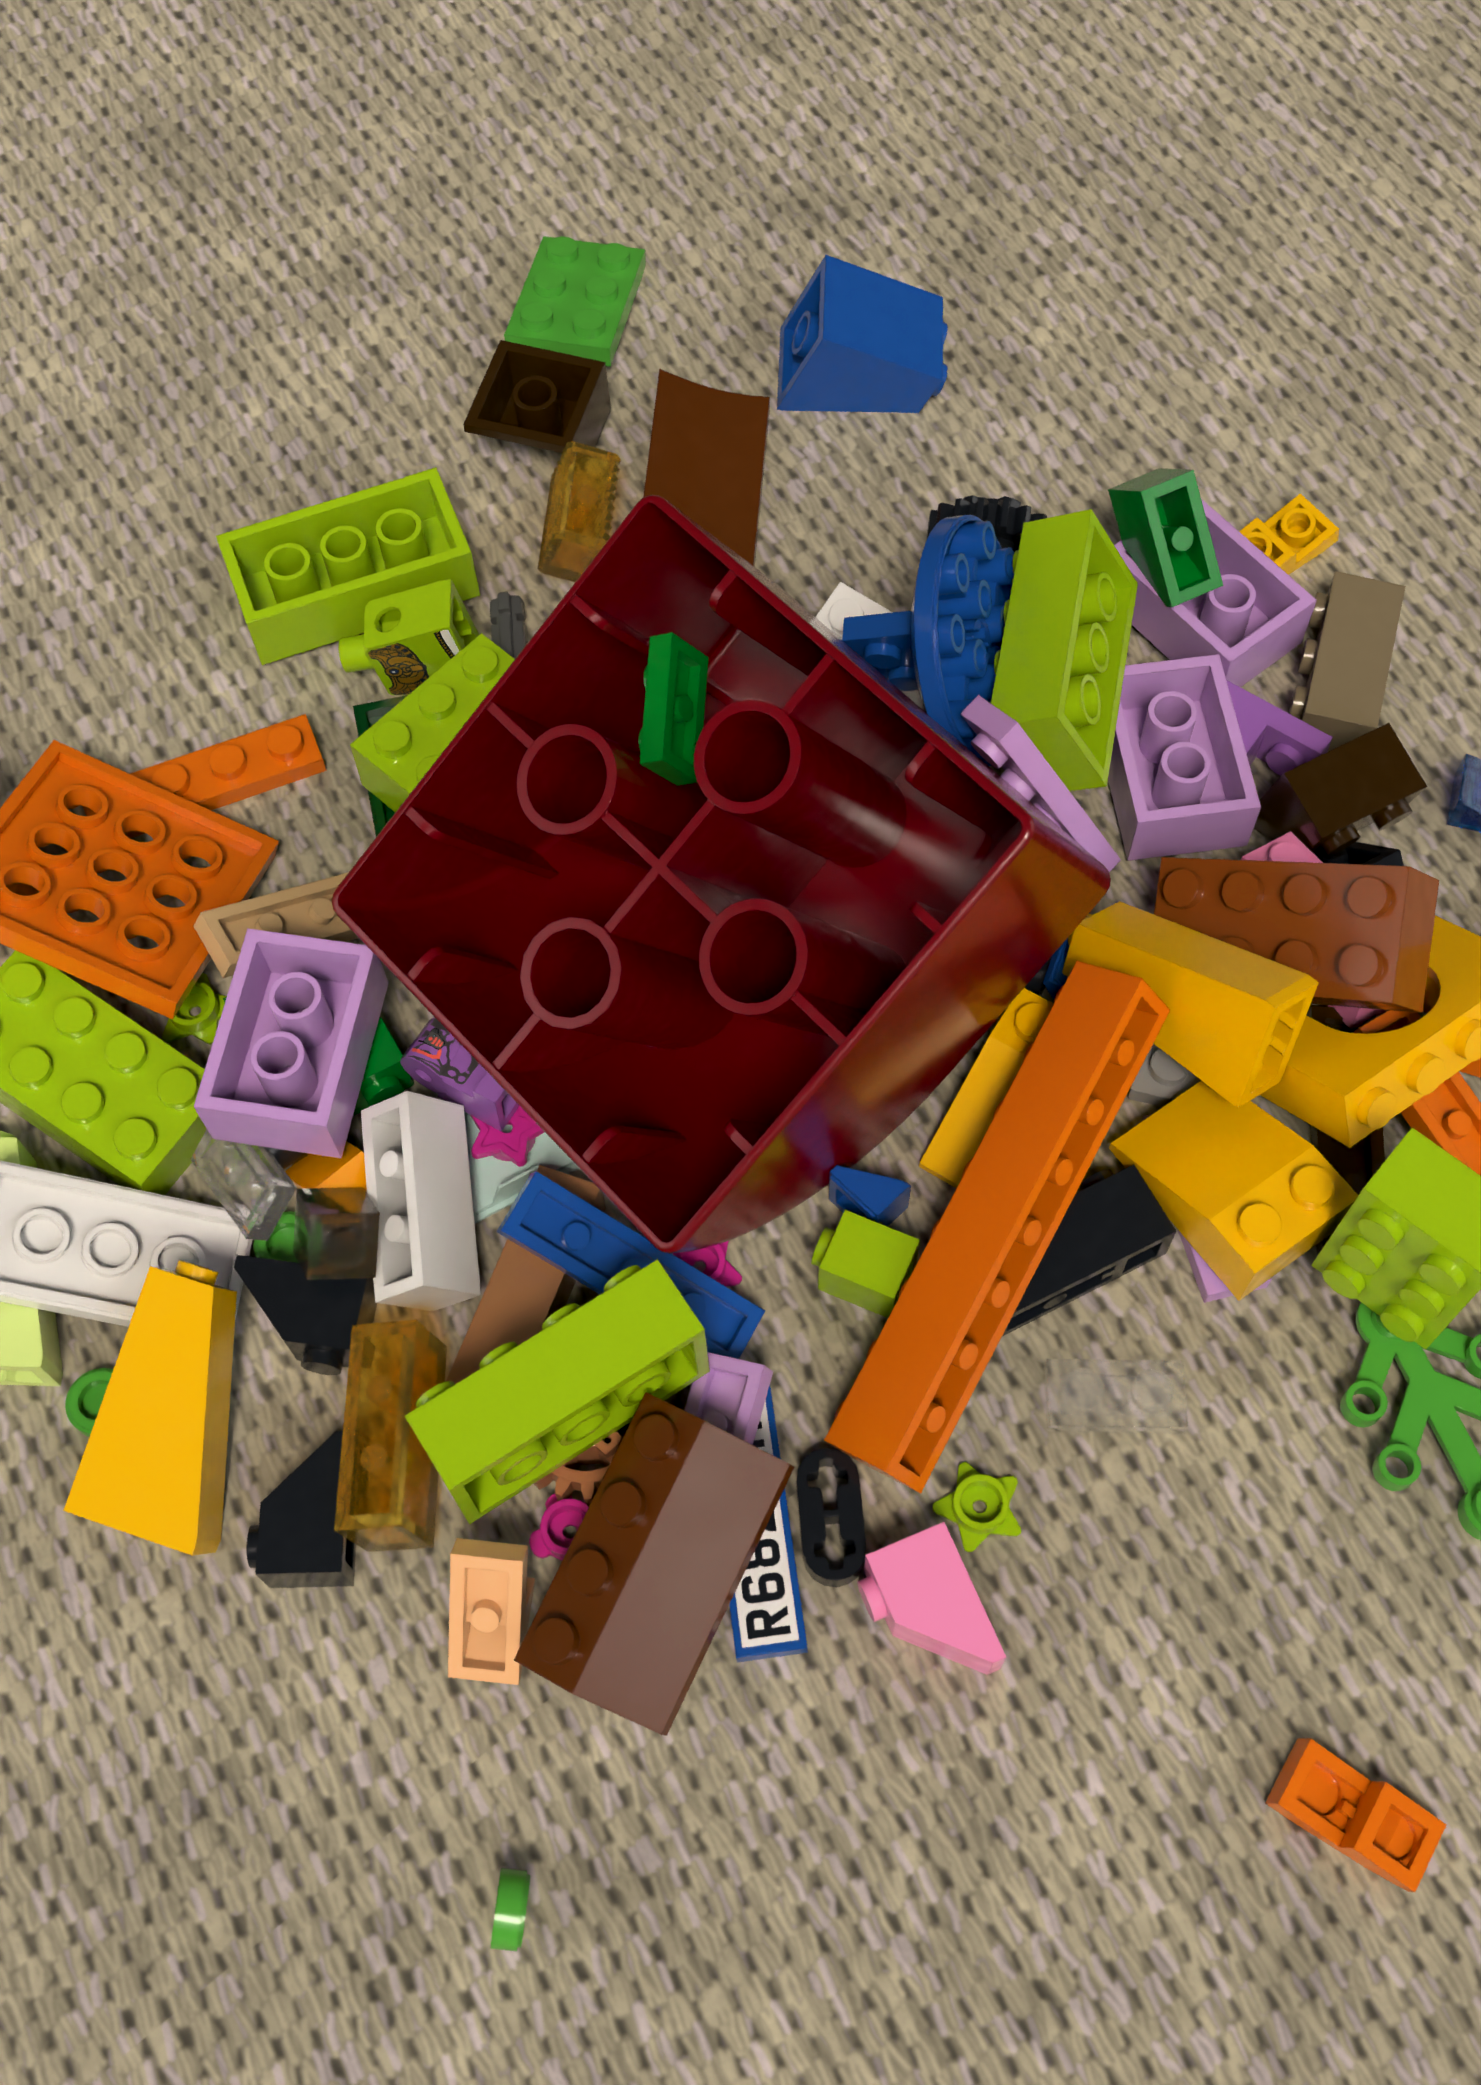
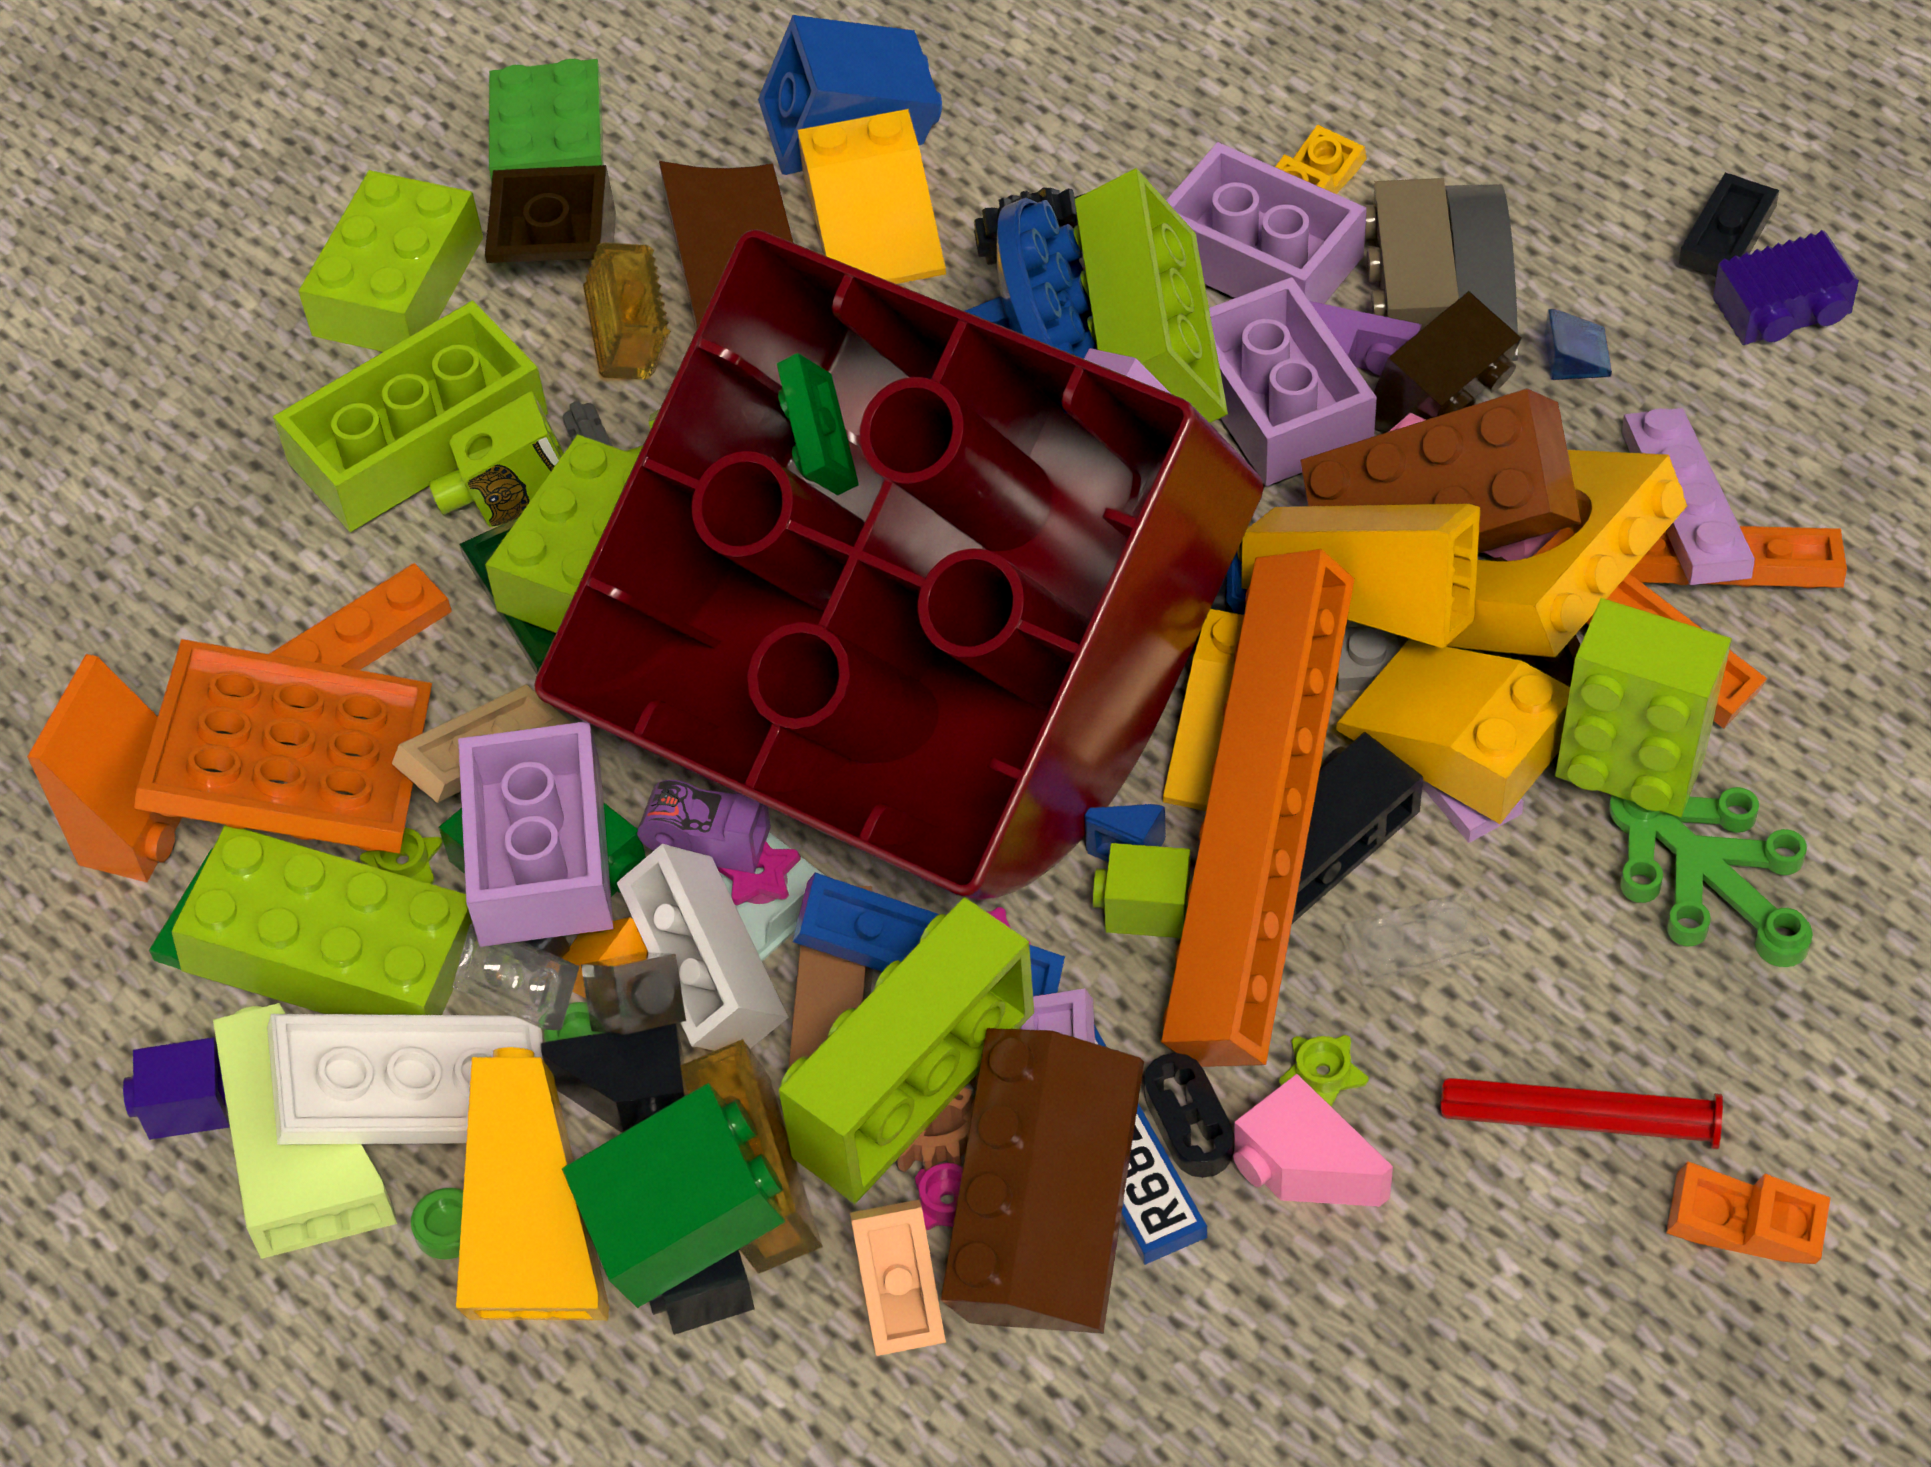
camera: 15 degrees left, 10 degrees down
(291, 1471) = (675, 1194): none -> green brick
(385, 404) = (391, 261): none -> lime brick
(845, 462) = (872, 196): none -> yellow slope
(1167, 533) = (1208, 181): green slope -> none
(1226, 1642) = (1583, 1110): none -> red axle
(1421, 672) = (1484, 248): none -> dark grey slope

